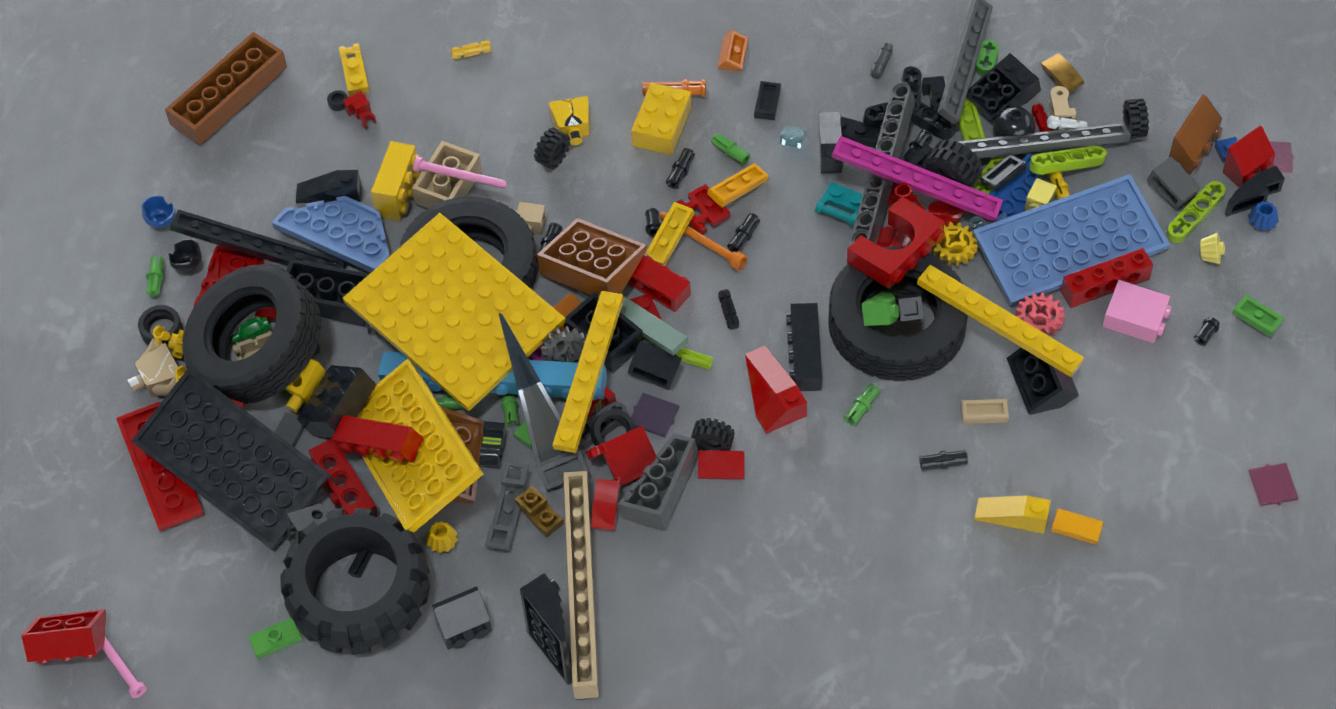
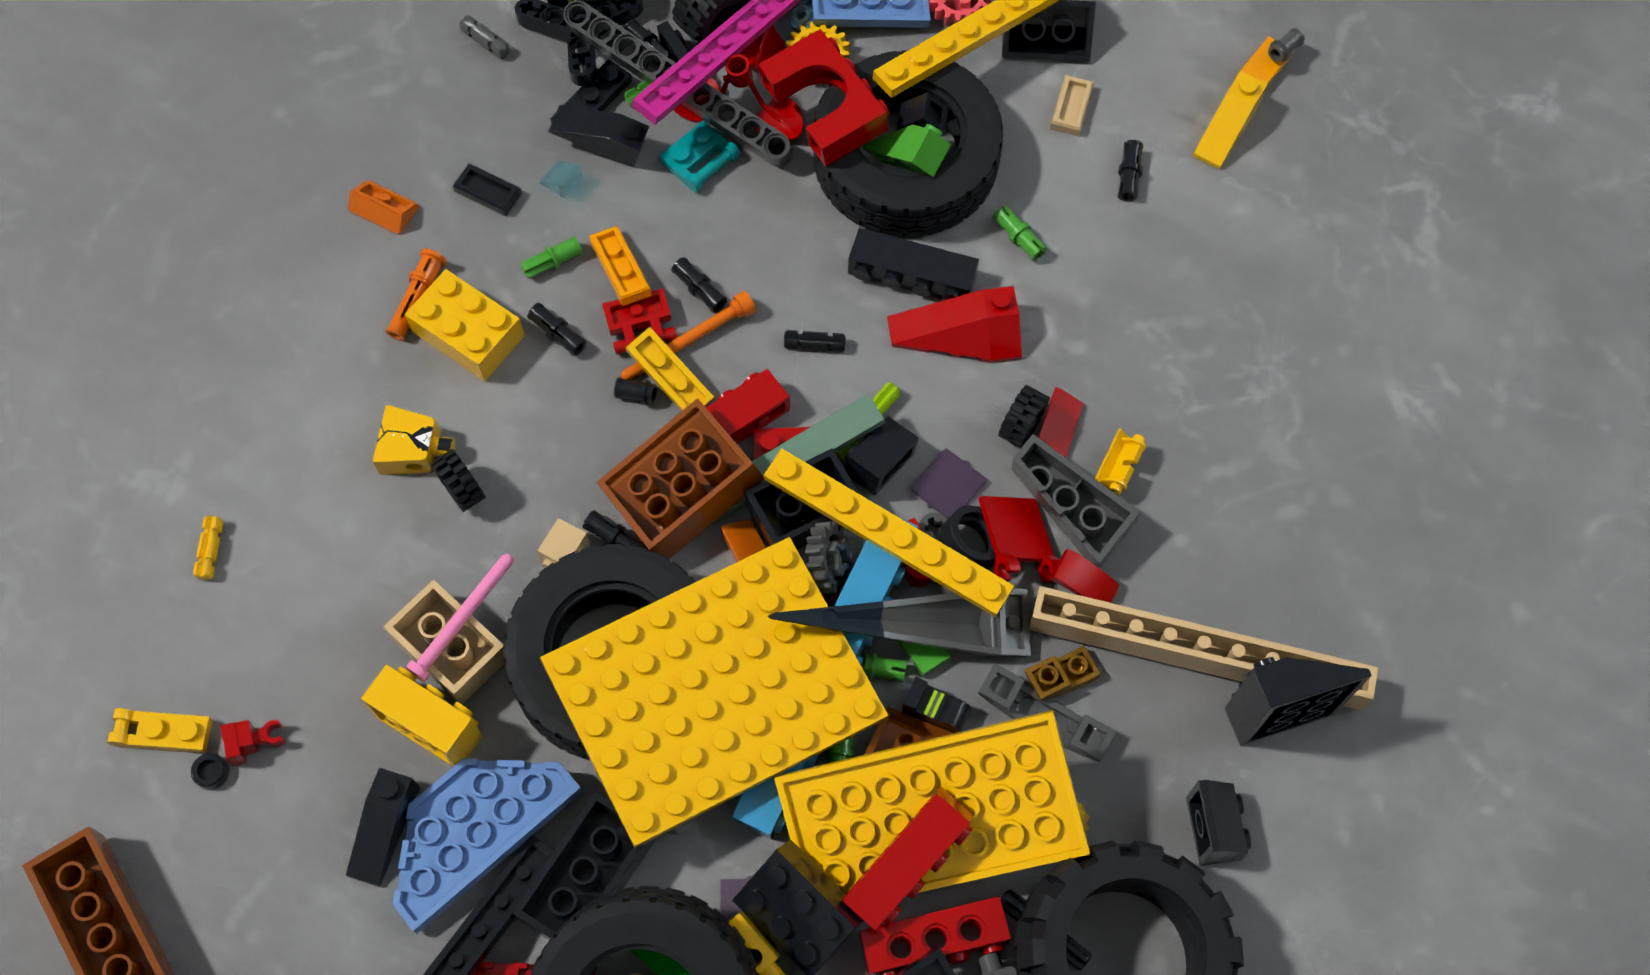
camera: 75 degrees left, 10 degrees up
(702, 506) = (1116, 466): none -> yellow hinge
(1094, 530) = (1281, 49): none -> dark grey pin

